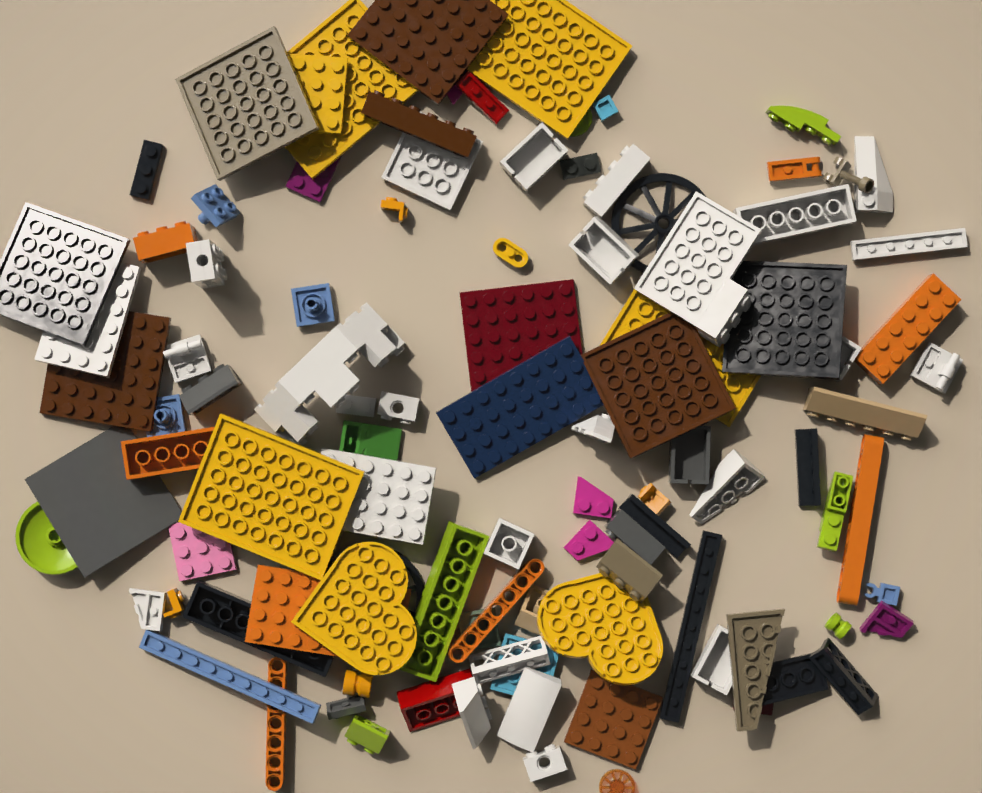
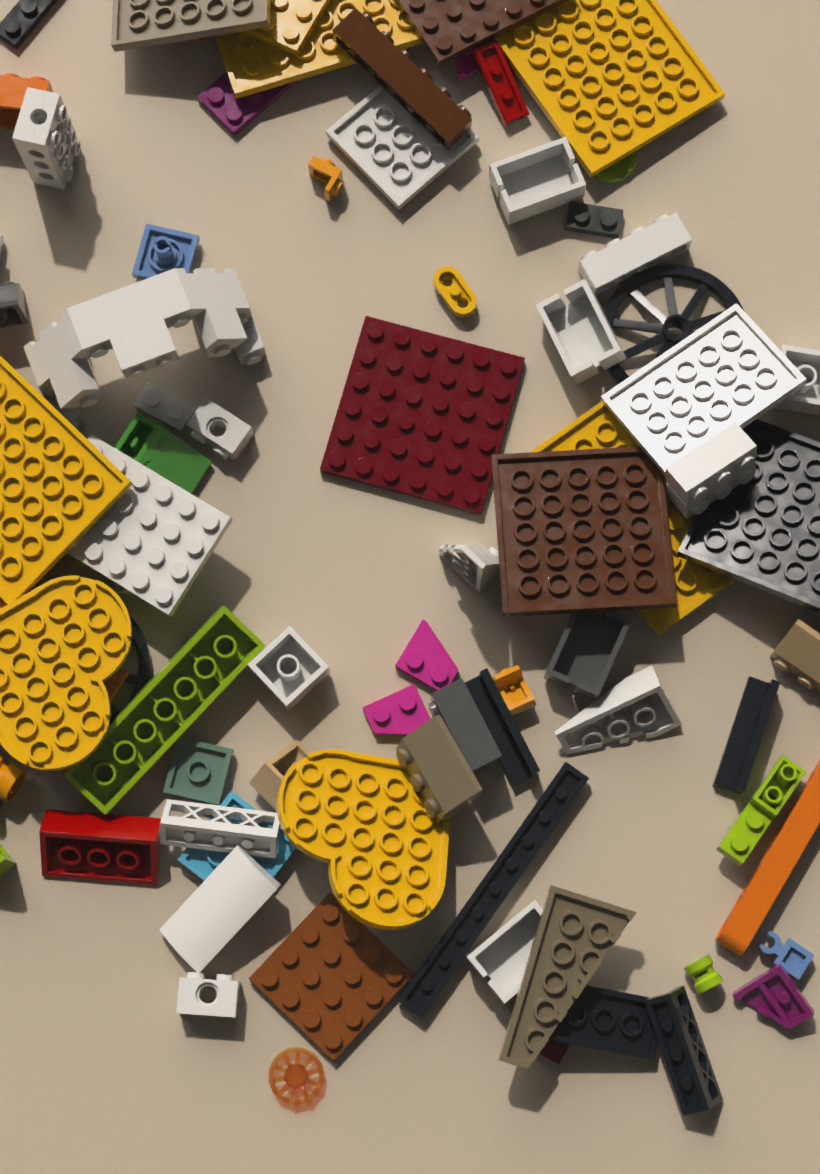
camera: 30 degrees right, 10 degrees down
(214, 206) = (94, 82): medium blue plate -> none
(472, 709) = (137, 874): white slope -> none
(504, 605) = (242, 742): orange beam -> none
(520, 407) = (383, 494): dark blue plate -> none
(605, 108) = (657, 158): medium azure plate -> none

